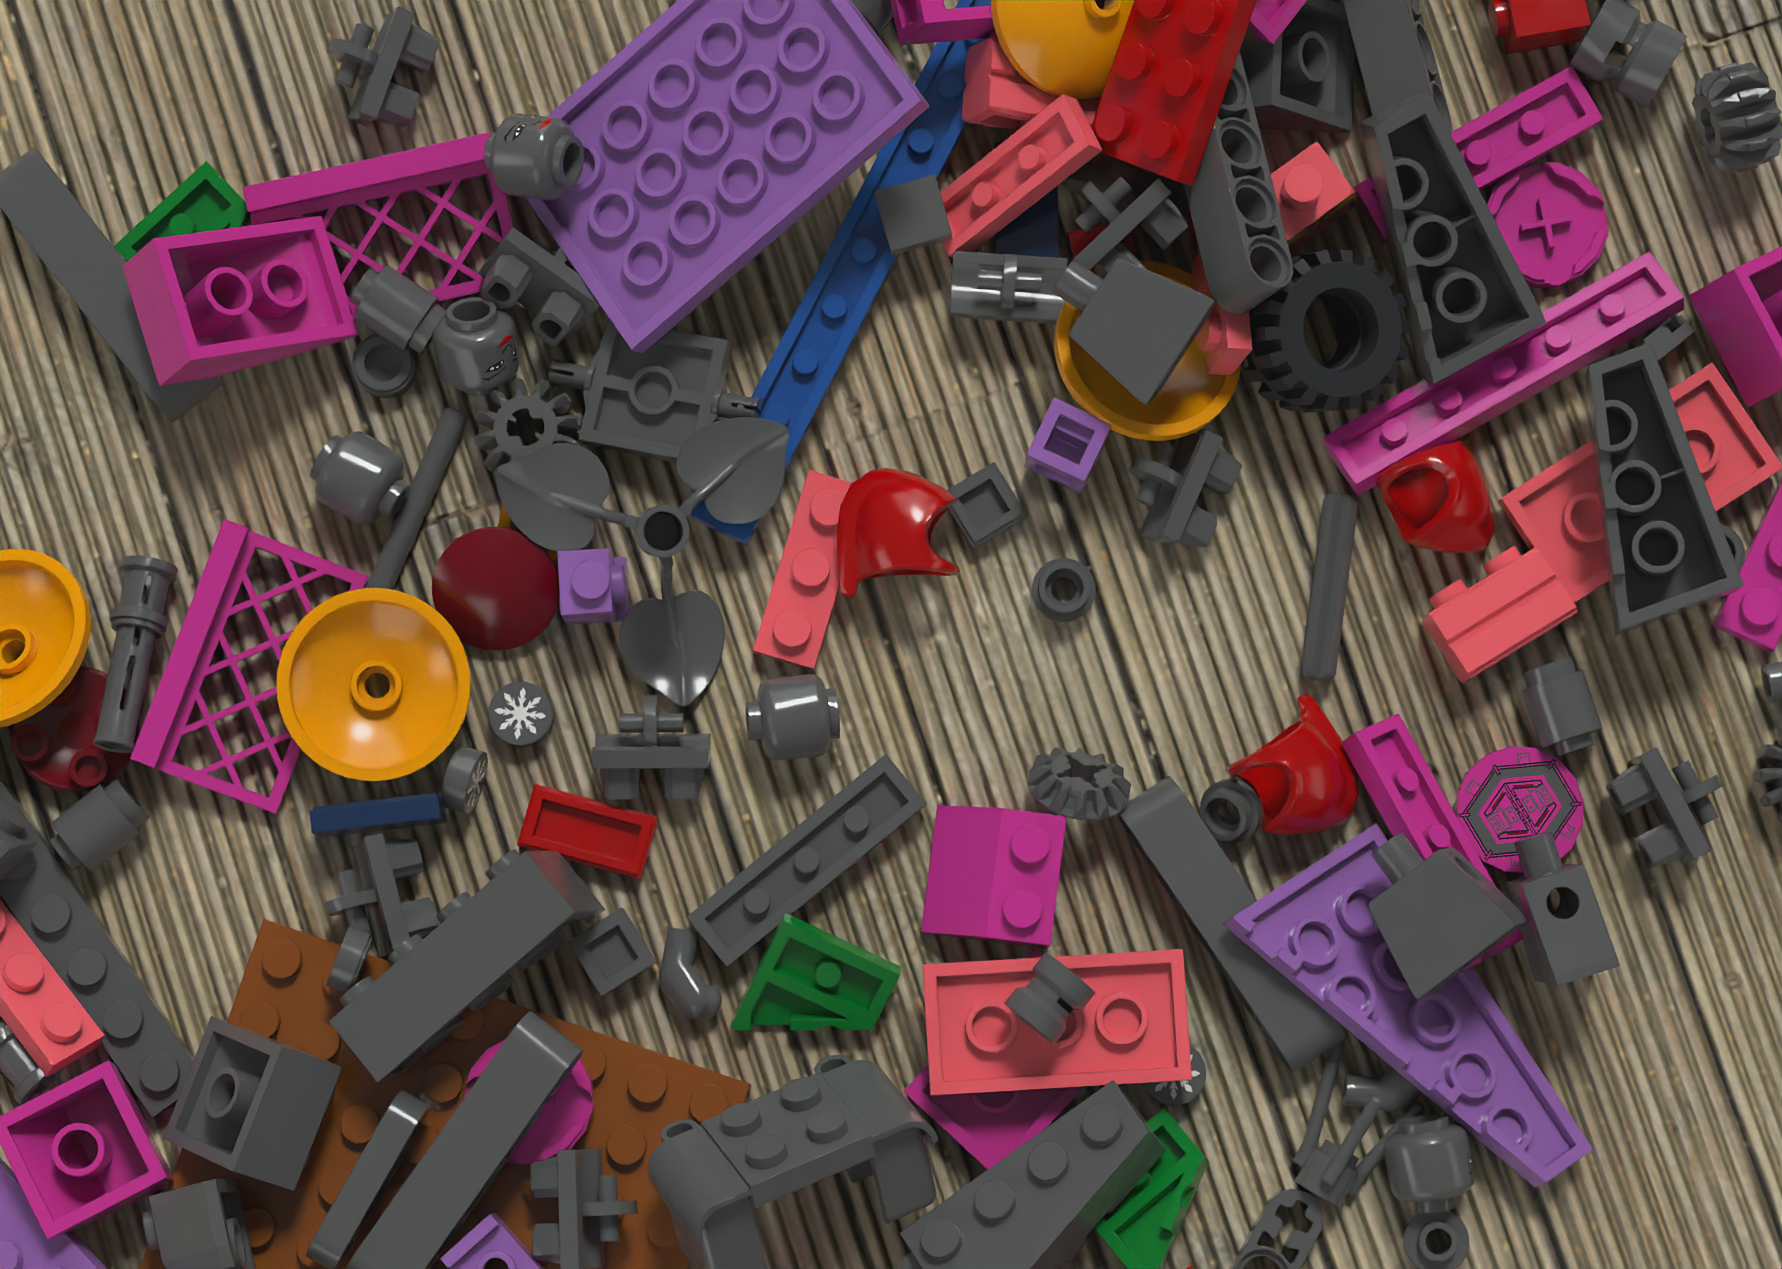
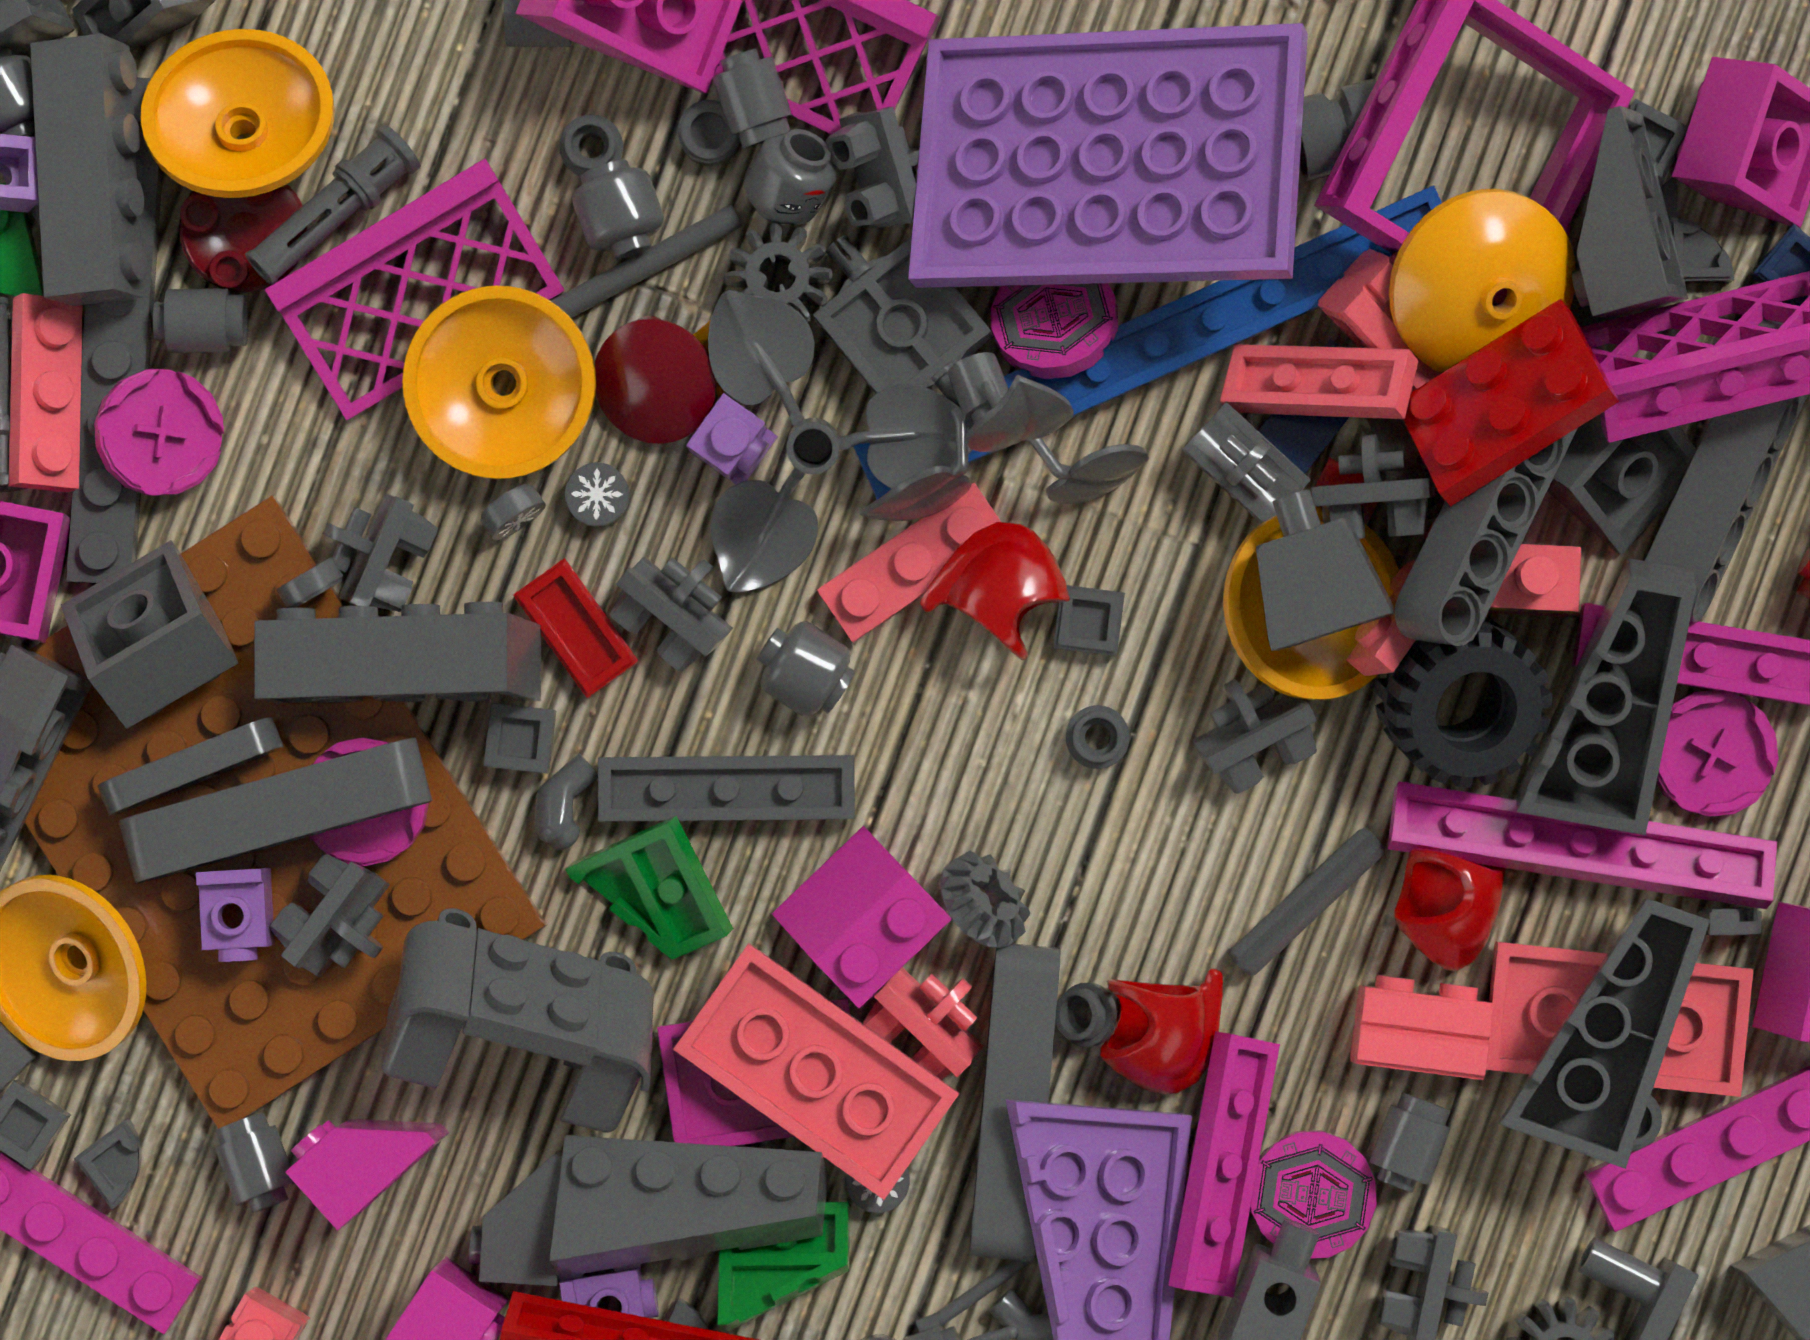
camera: 35 degrees right, 5 degrees up
(133, 940) = (159, 432): none -> dark pink tile
(285, 436) = (583, 128): none -> dark grey plate
(377, 815) = (422, 485): dark blue tile -> none
(534, 156) = (954, 64): dark grey head -> none
(772, 298) = (1054, 326): none -> tile
(789, 396) = (1001, 419): none -> dark grey plant
(913, 215) = (1217, 347): dark grey tile -> none
(1049, 998) = (822, 1051): dark grey wheel -> none
(1067, 445) = (1190, 627): medium lavender brick -> none
(1111, 907) = (932, 1016): none -> coral hips
(1438, 913) = (1178, 1227): dark grey torso -> none

